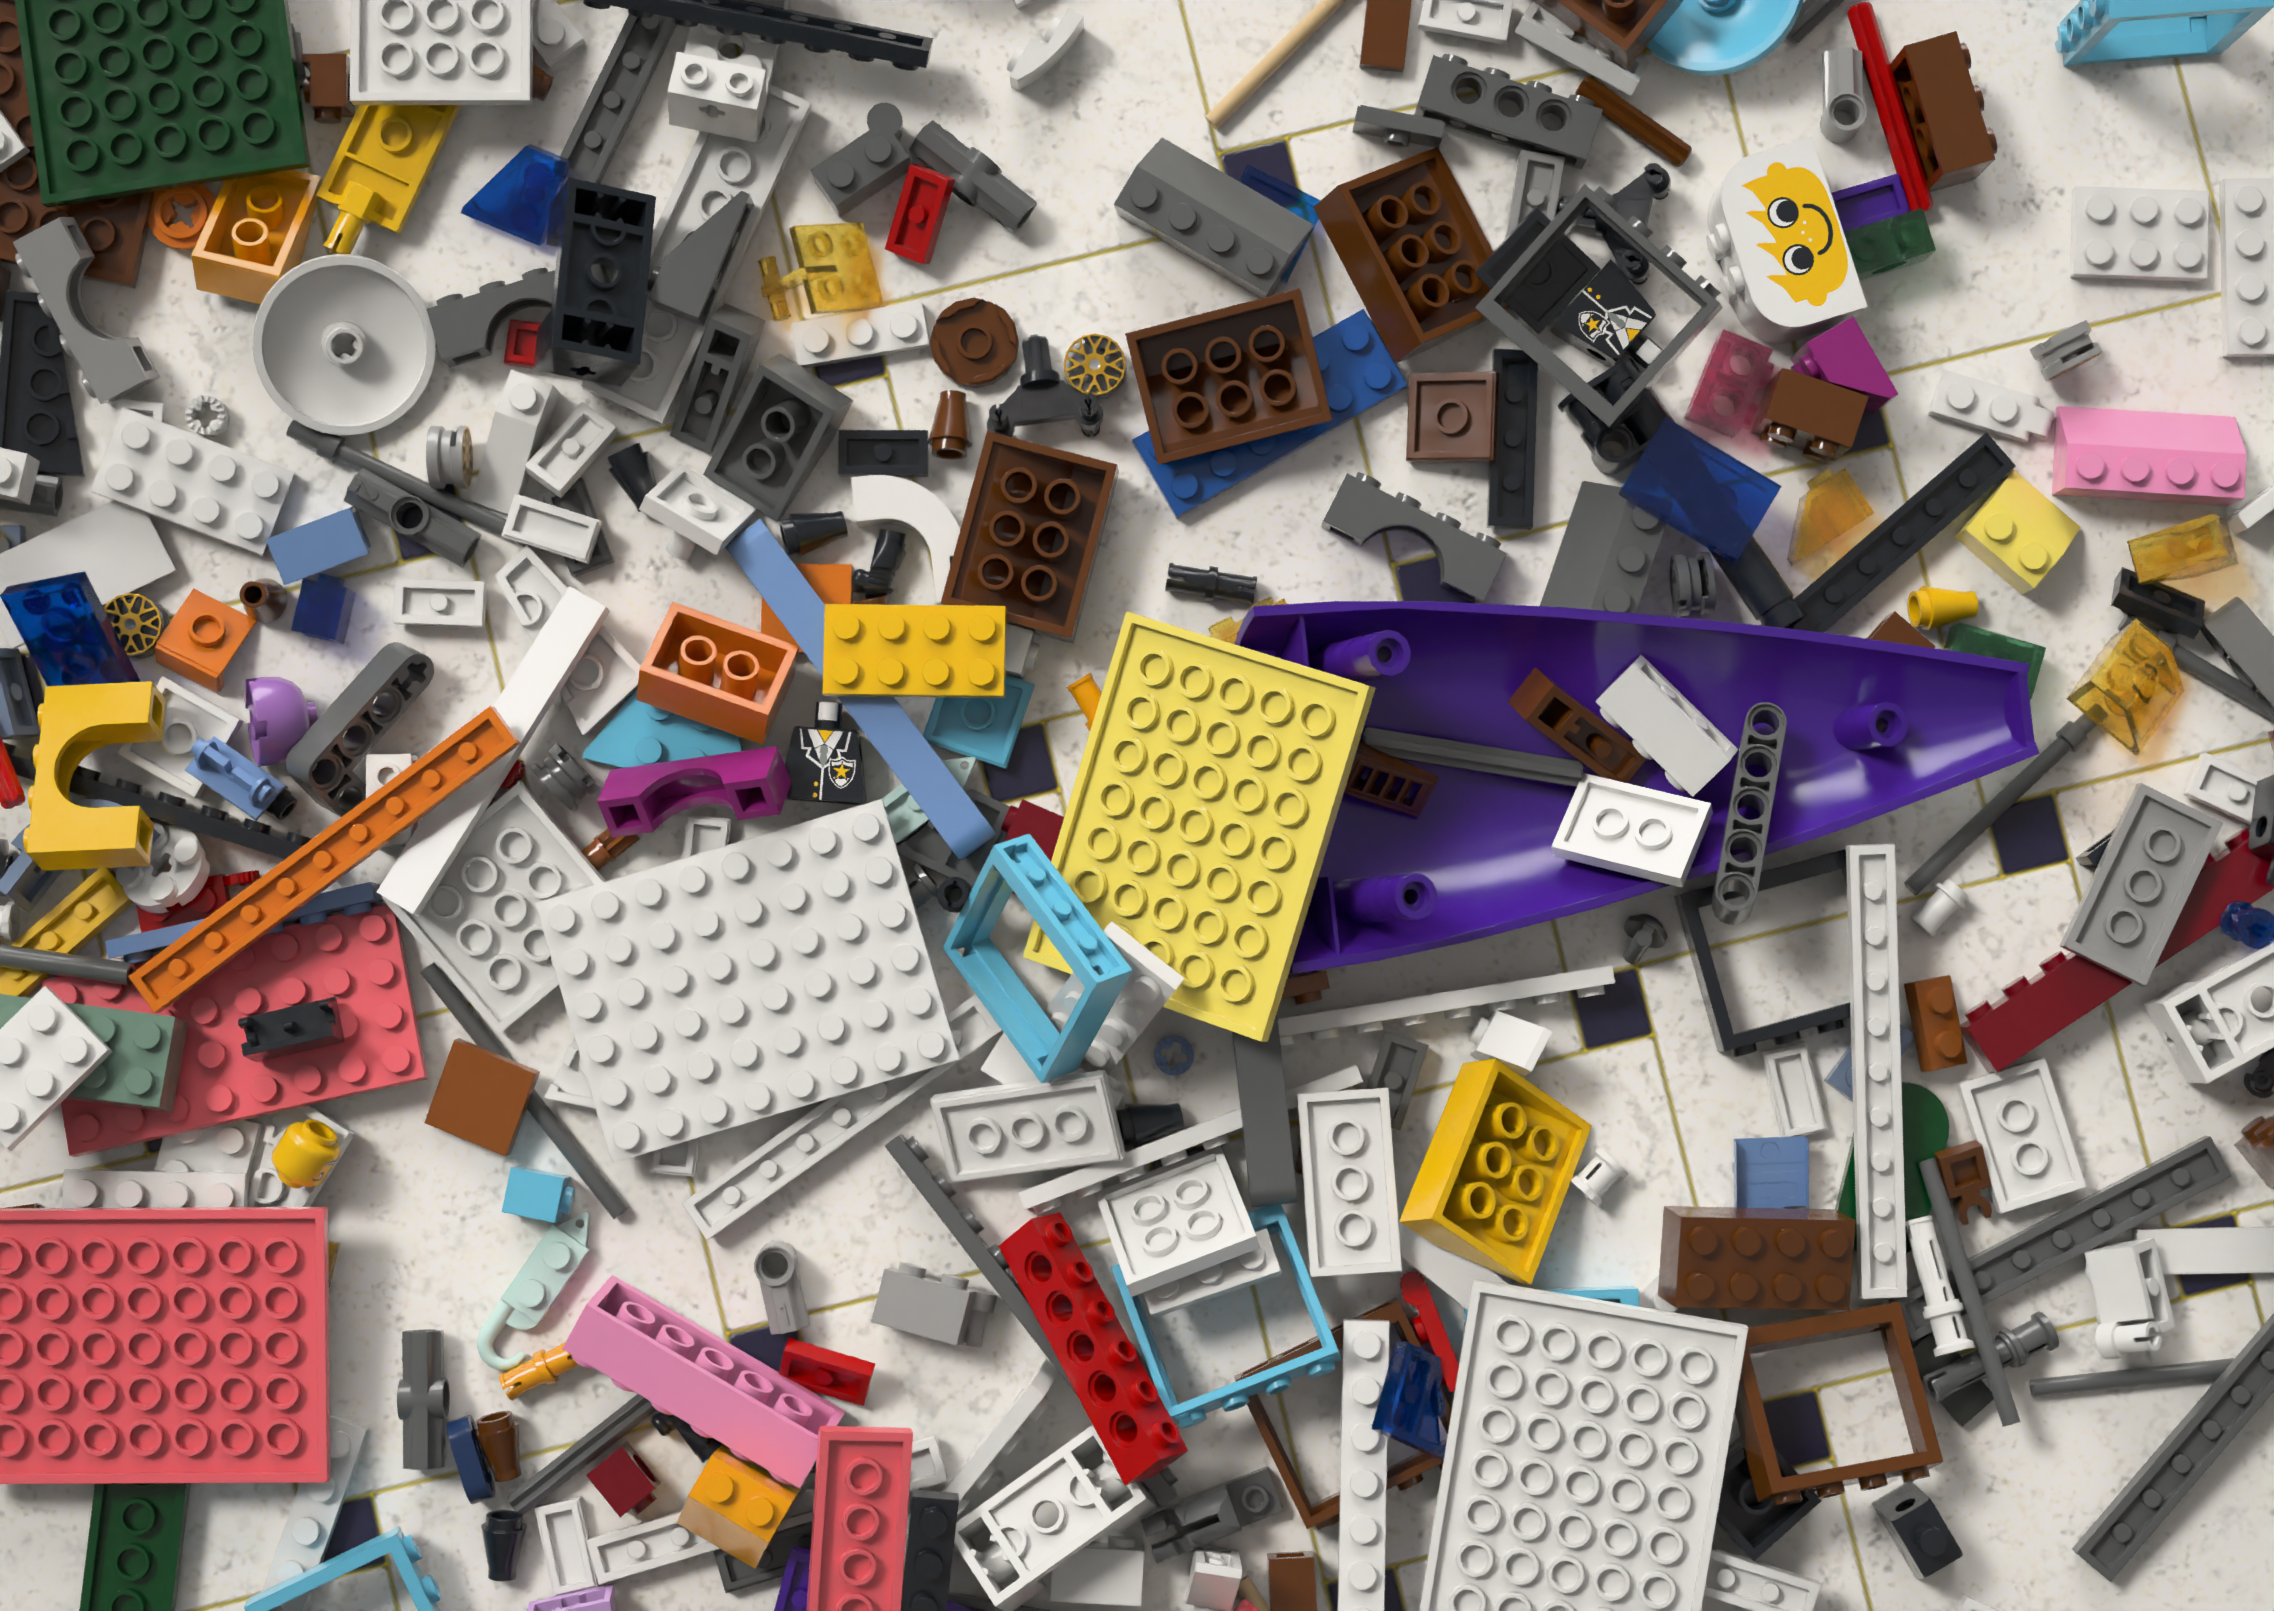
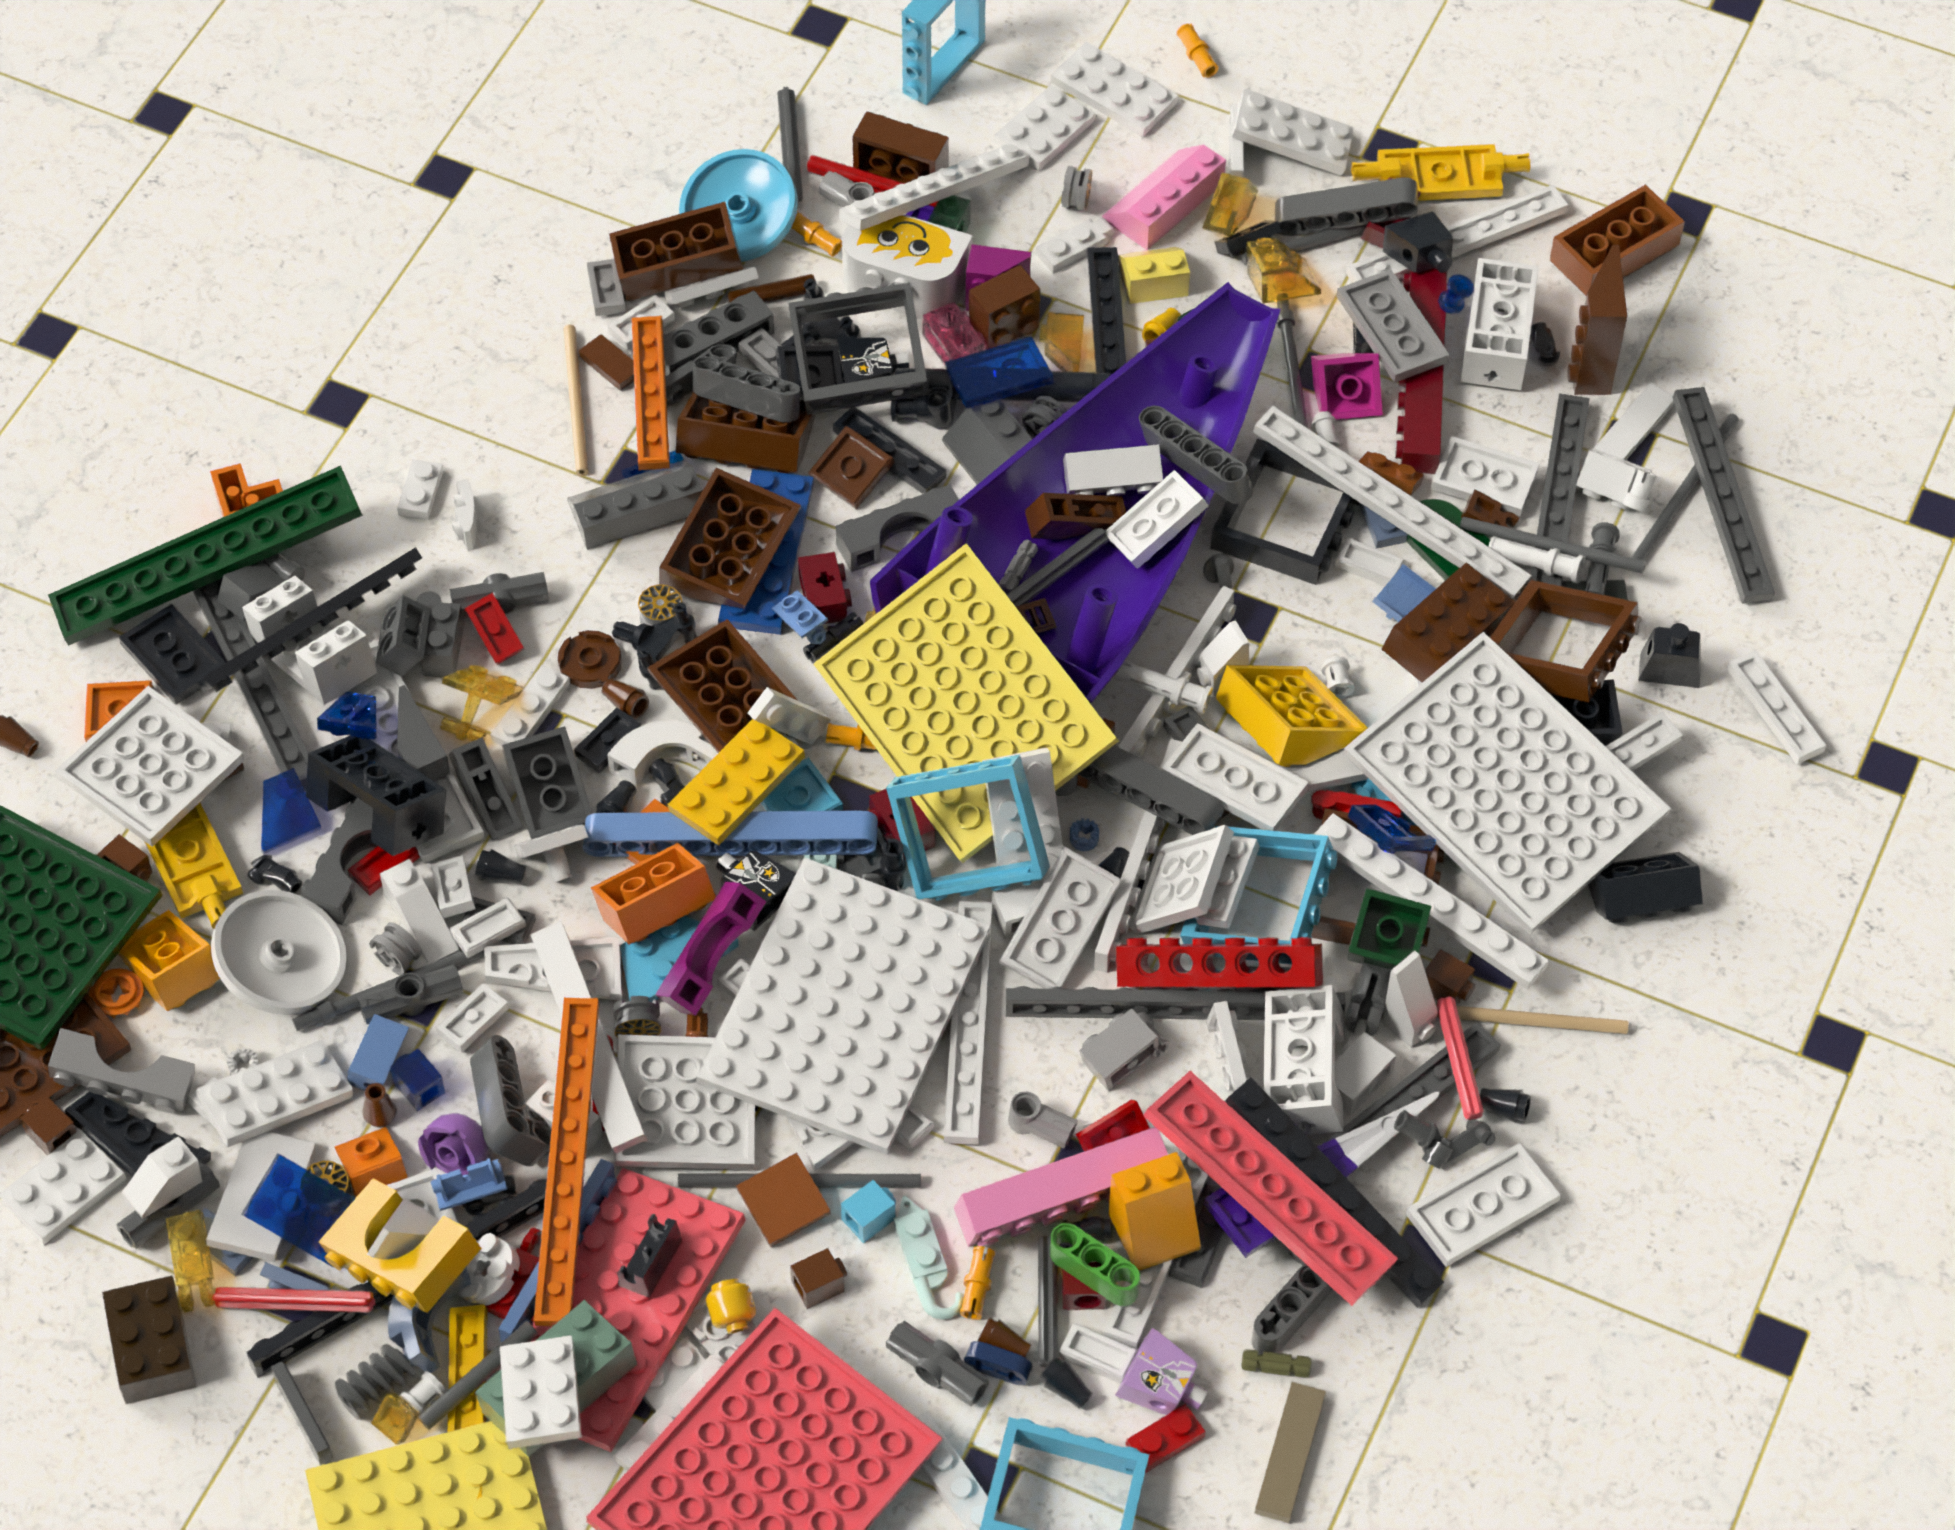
camera: 50 degrees left, 30 degrees down
(105, 774) = (403, 1231): none -> white slope
(422, 1205) = (818, 1277): none -> reddish brown brick
(442, 249) = (279, 875): none -> black arm
(625, 1512) = (1100, 1279): none -> bright green beam
(670, 172) = (351, 715): none -> clear blue wing
(817, 133) = (403, 636): none -> dark grey brick
(1042, 639) = (789, 716): none -> white plate
(1193, 536) = (802, 617): none -> medium blue hinge
(1269, 496) = (822, 585): none -> dark red brick
(1274, 1501) = (1388, 929): none -> dark green brick
(1359, 117) = (650, 393): none -> orange tile
(1421, 1028) = (1178, 689): none -> white pin
(1460, 714) = (1018, 566): none -> light grey axle
(1463, 269) = (723, 381): none -> dark grey beam
(1755, 103) = (815, 234): none -> light orange pin
(1912, 198) = (933, 187): none -> white plate
(2024, 882) = (1348, 384): none -> dark pink slope

